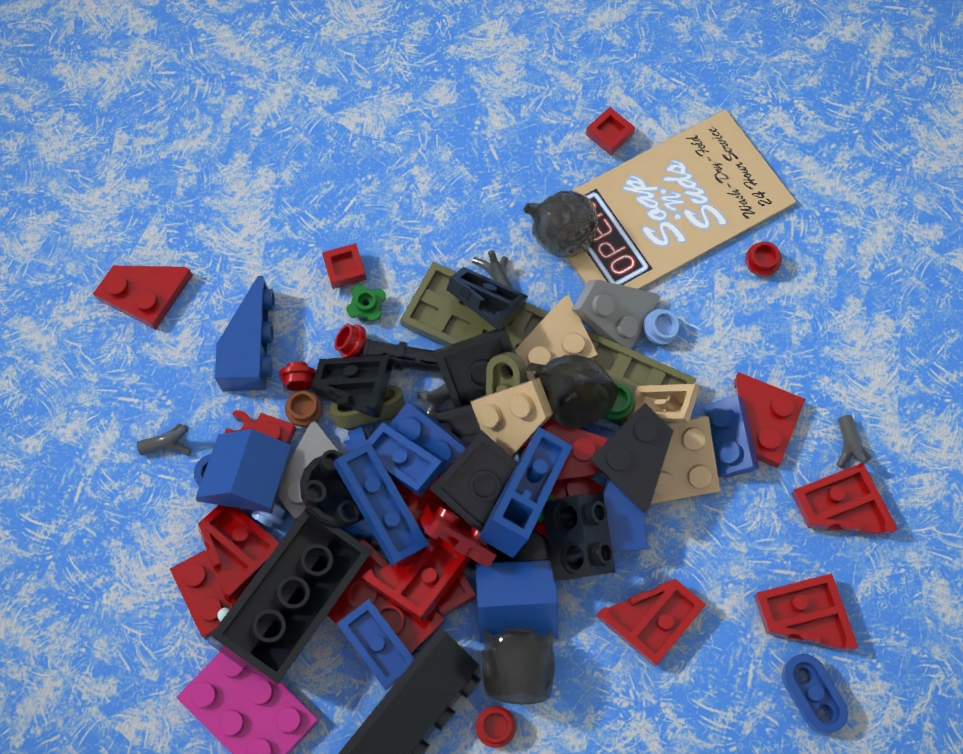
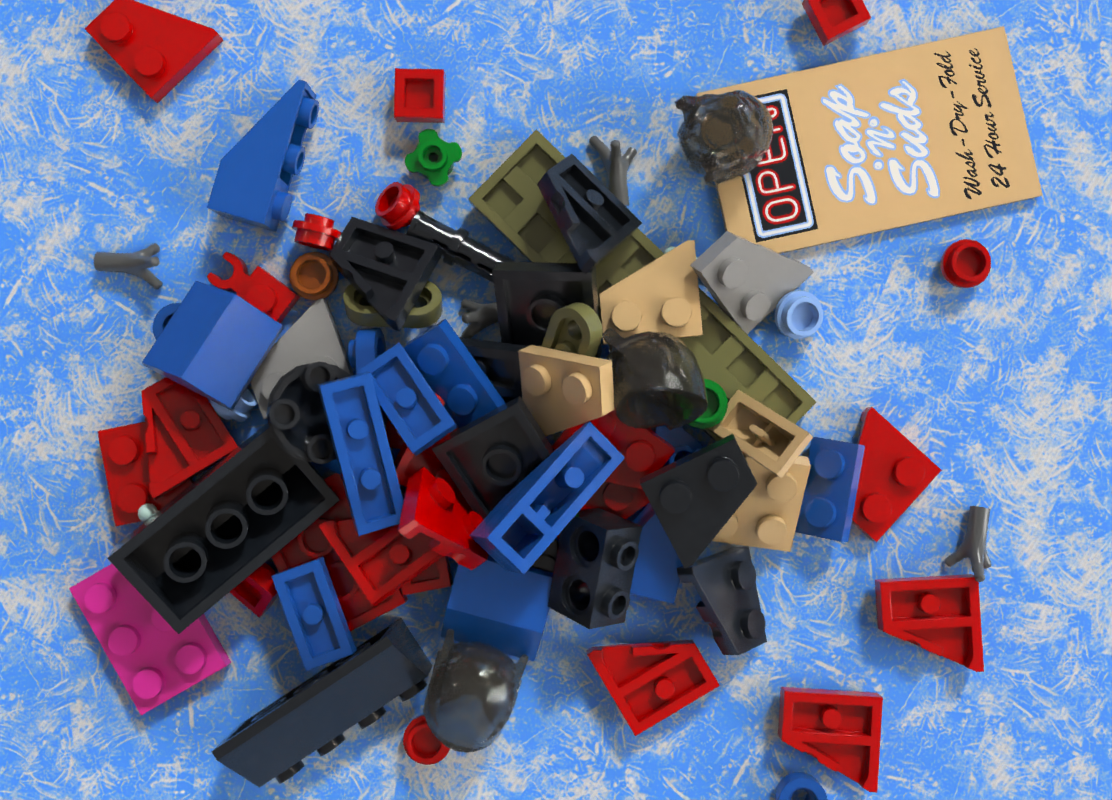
camera: 15 degrees right, 20 degrees up
(324, 648) = (257, 590): none -> red plate
(688, 536) = (728, 599): none -> black wing

